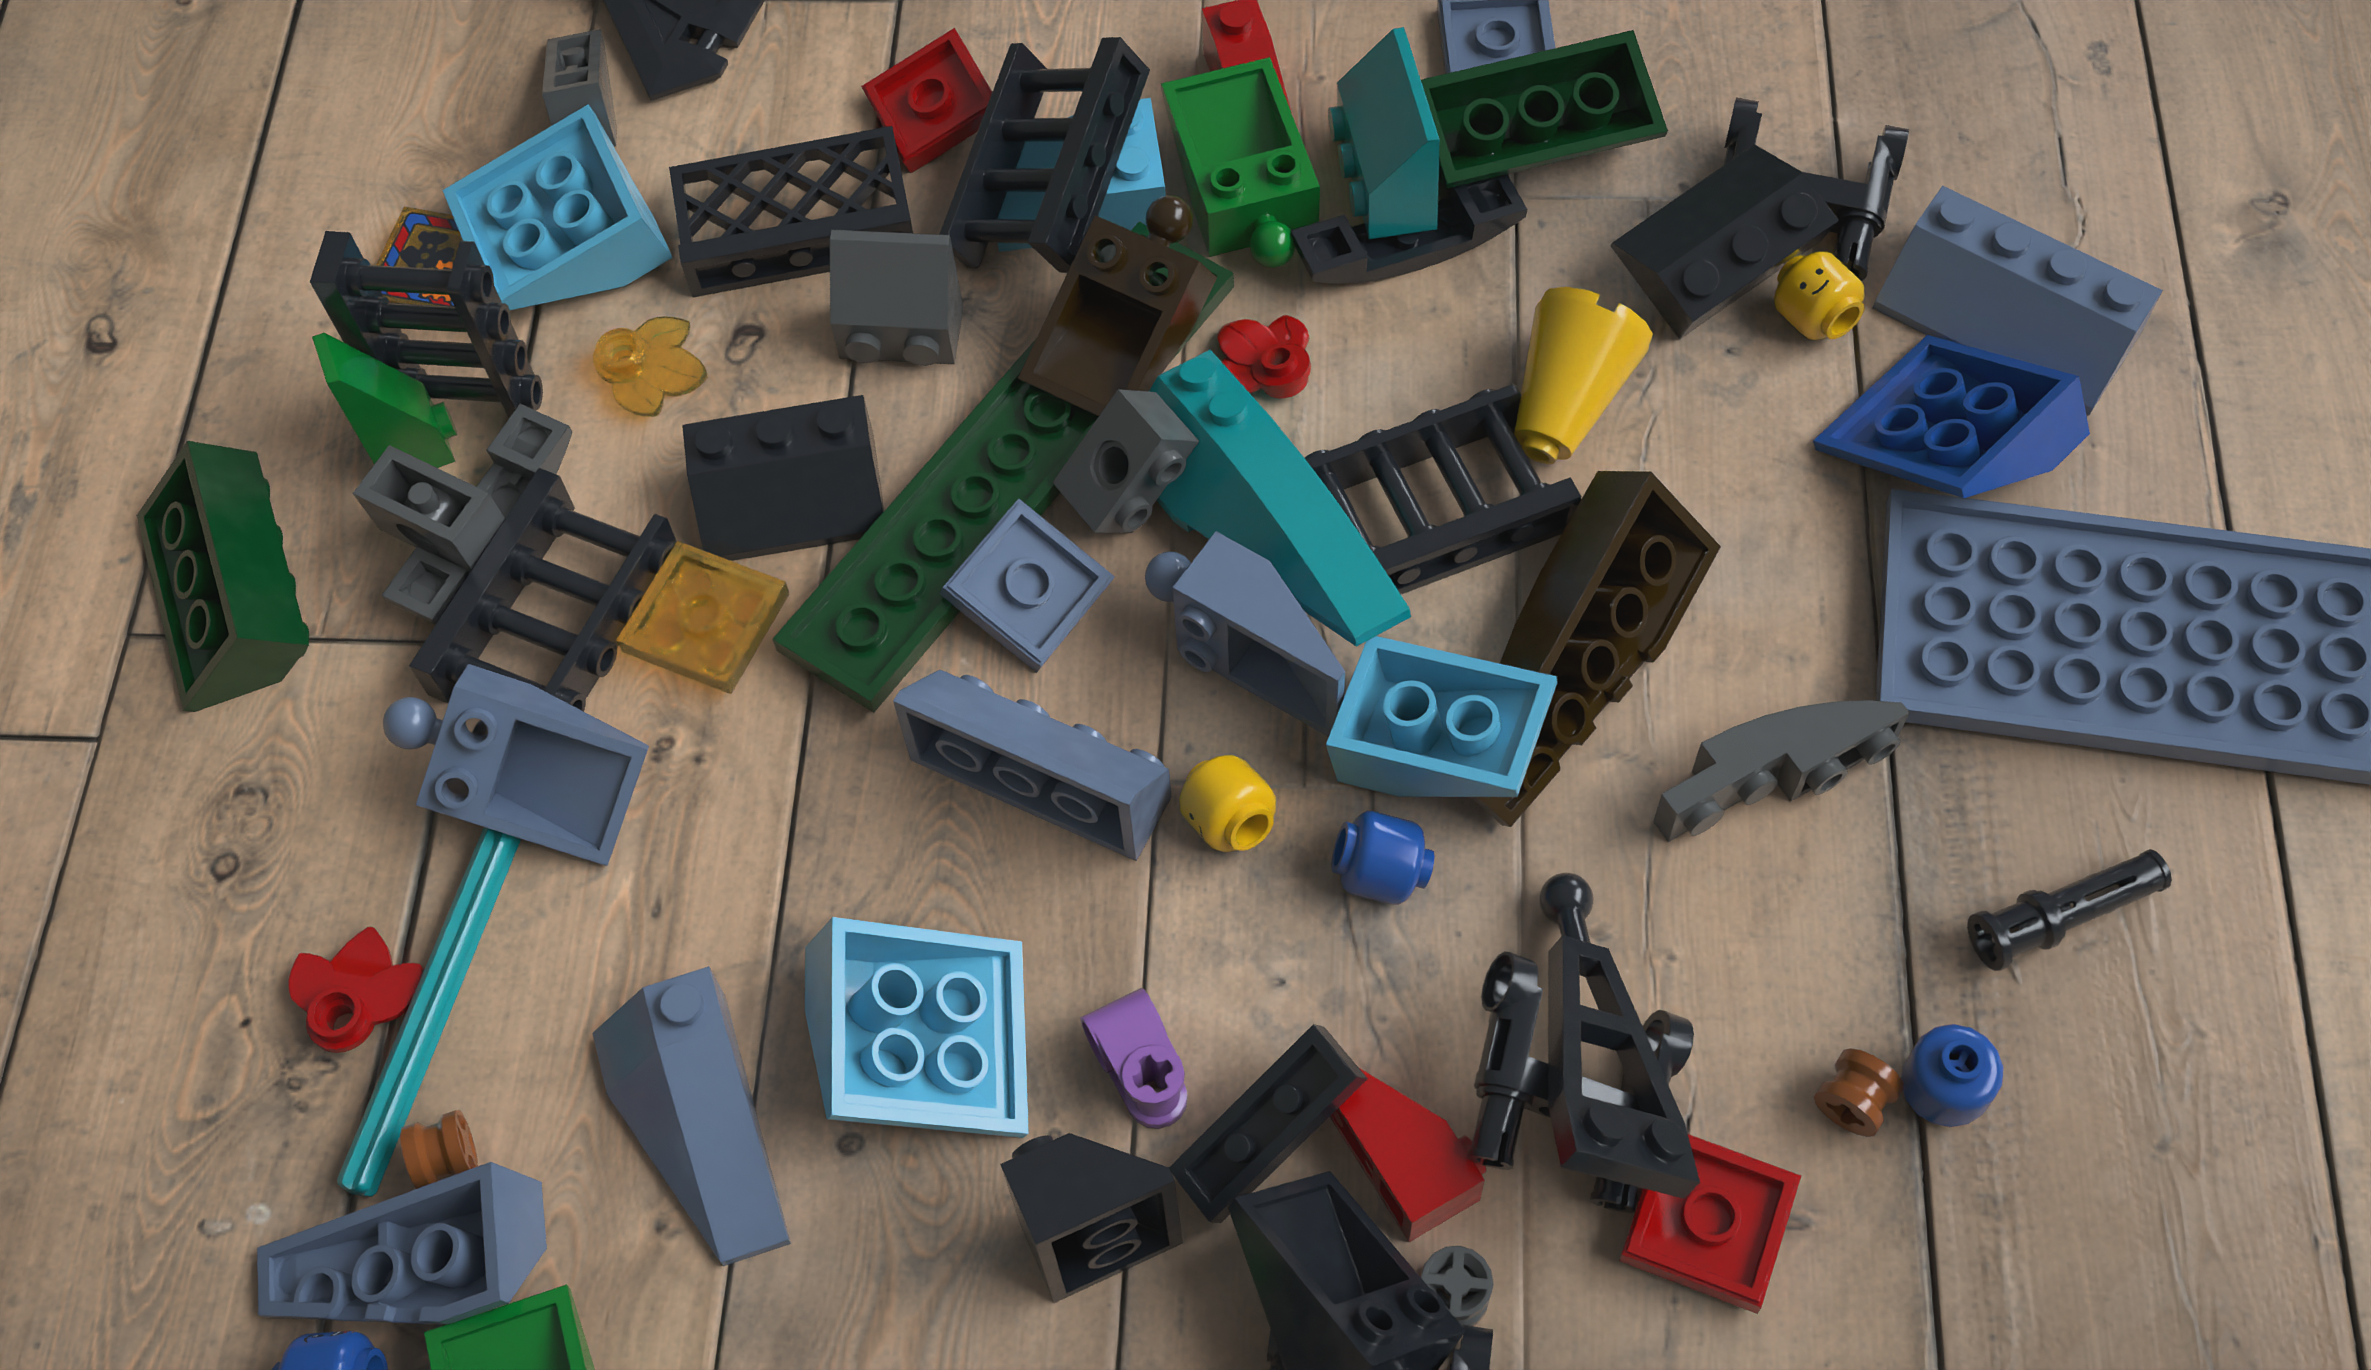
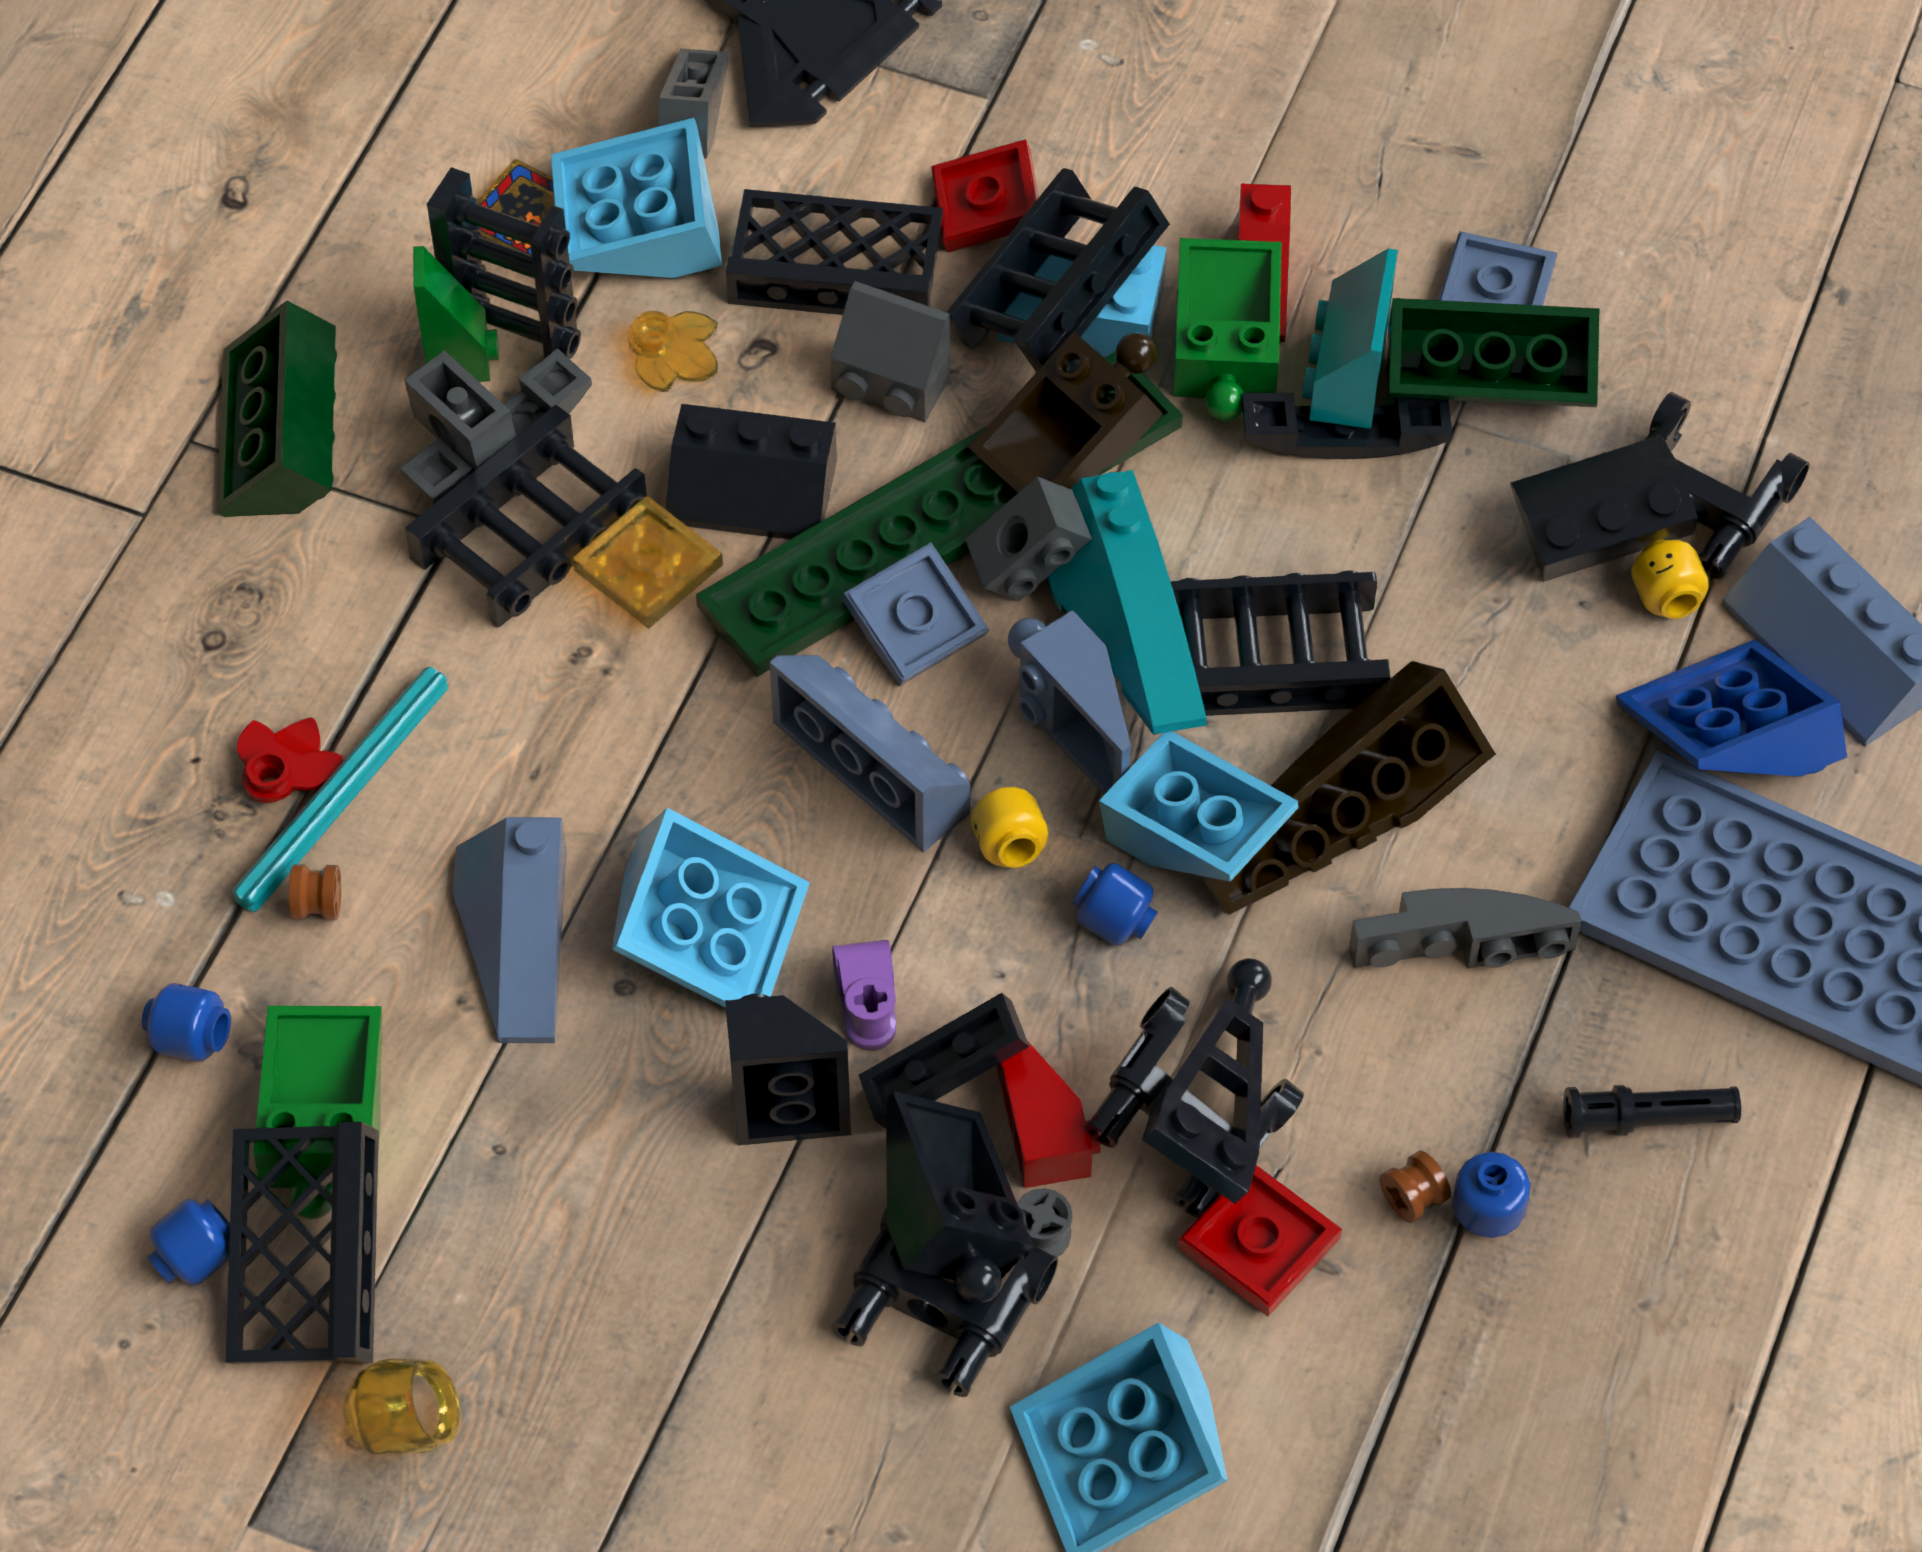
camera: 15 degrees right, 5 degrees down
(413, 1256) = (273, 953): sand blue wedge -> none
(526, 766) = (473, 637): sand blue slope -> none
(1267, 356) = (1183, 491): red plate -> none
(1574, 369) = (1431, 577): yellow cone -> none

